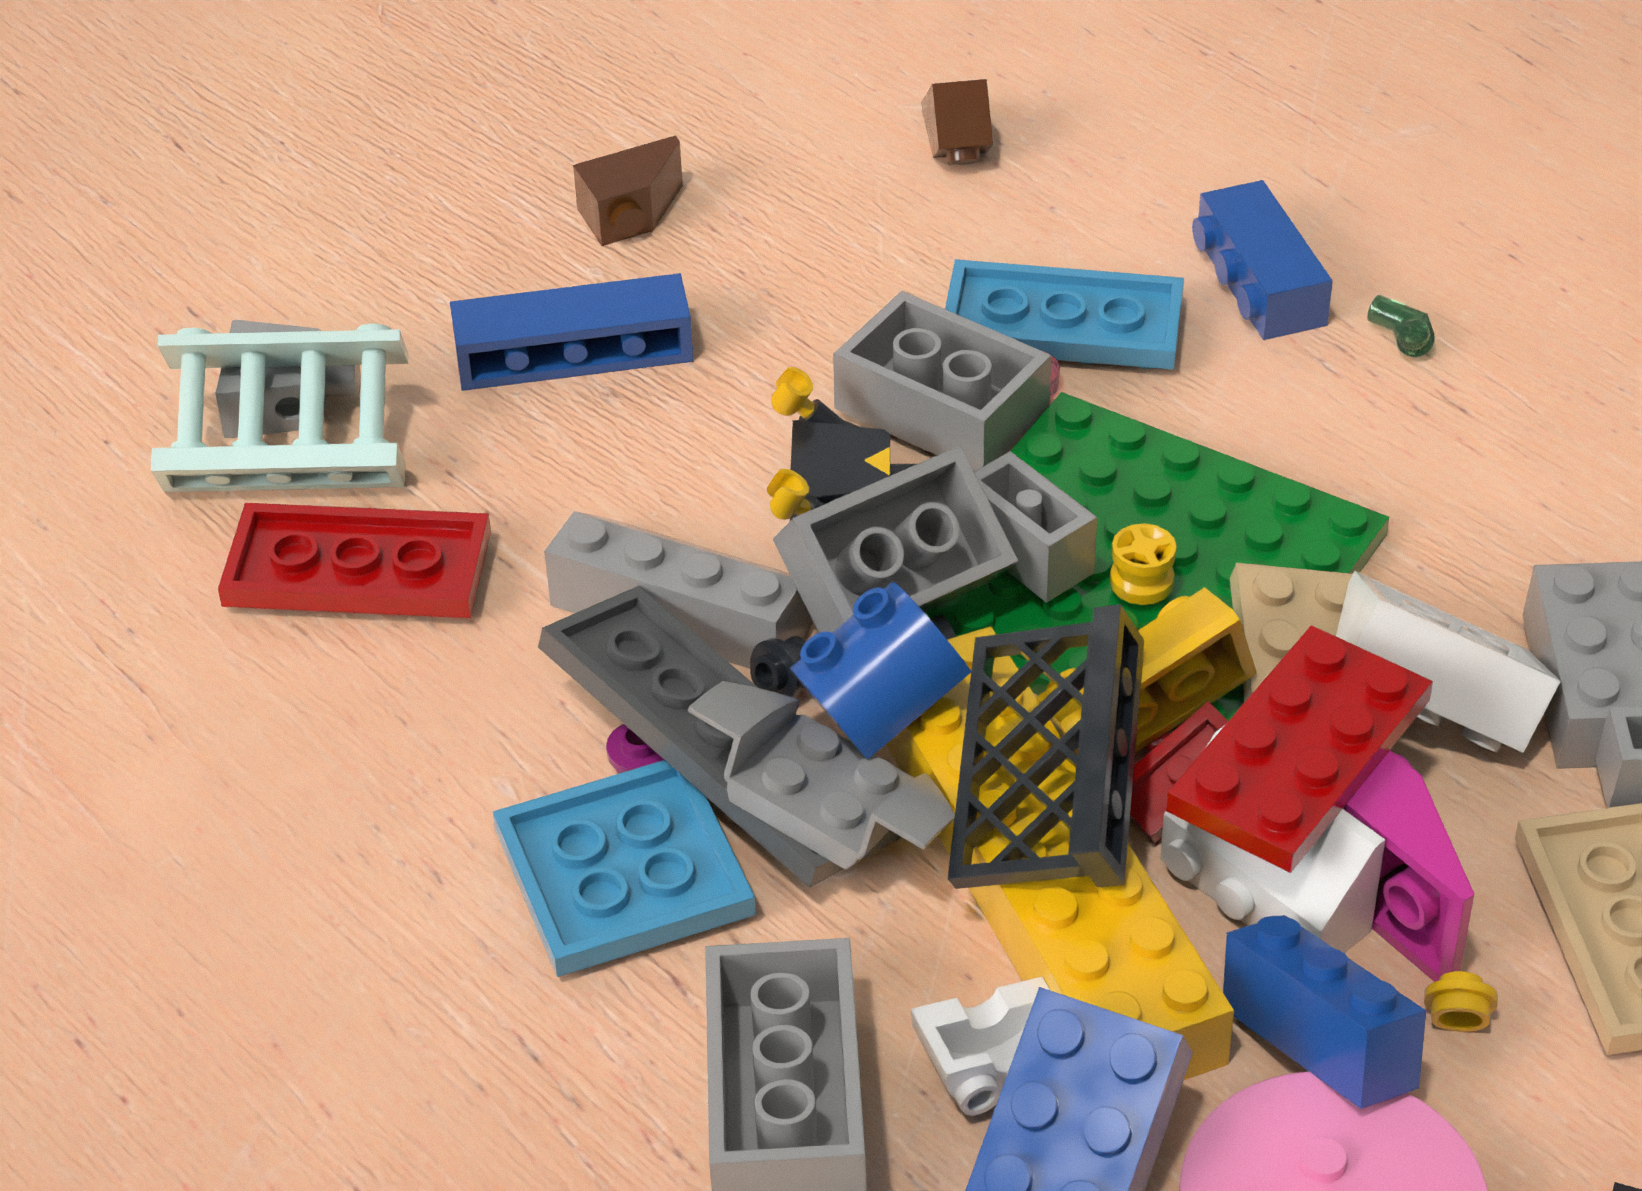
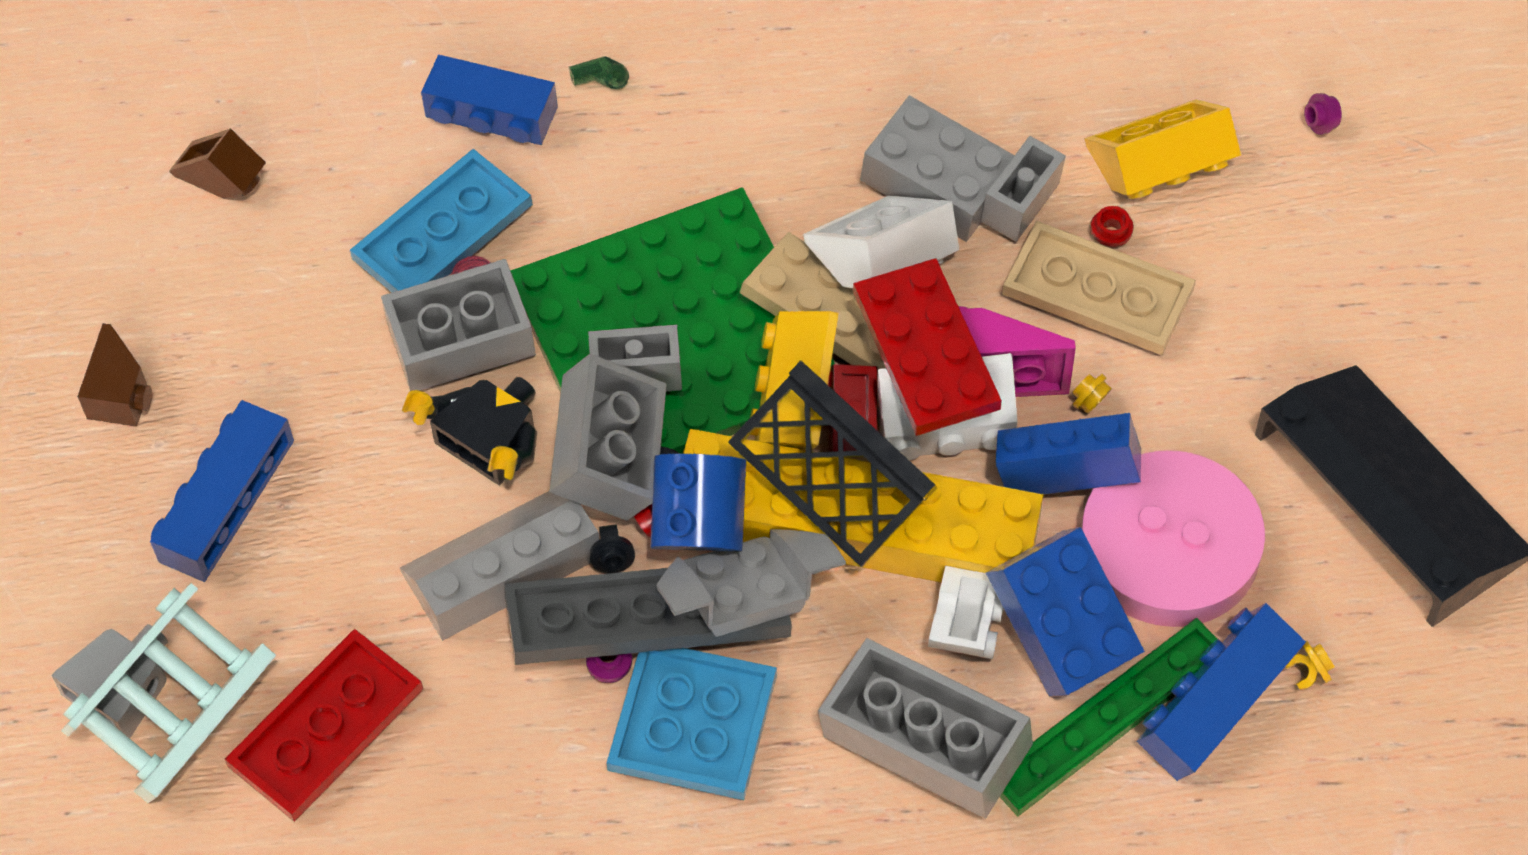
camera: 55 degrees left, 15 degrees up
(1143, 564) = (693, 315): yellow wheel -> none

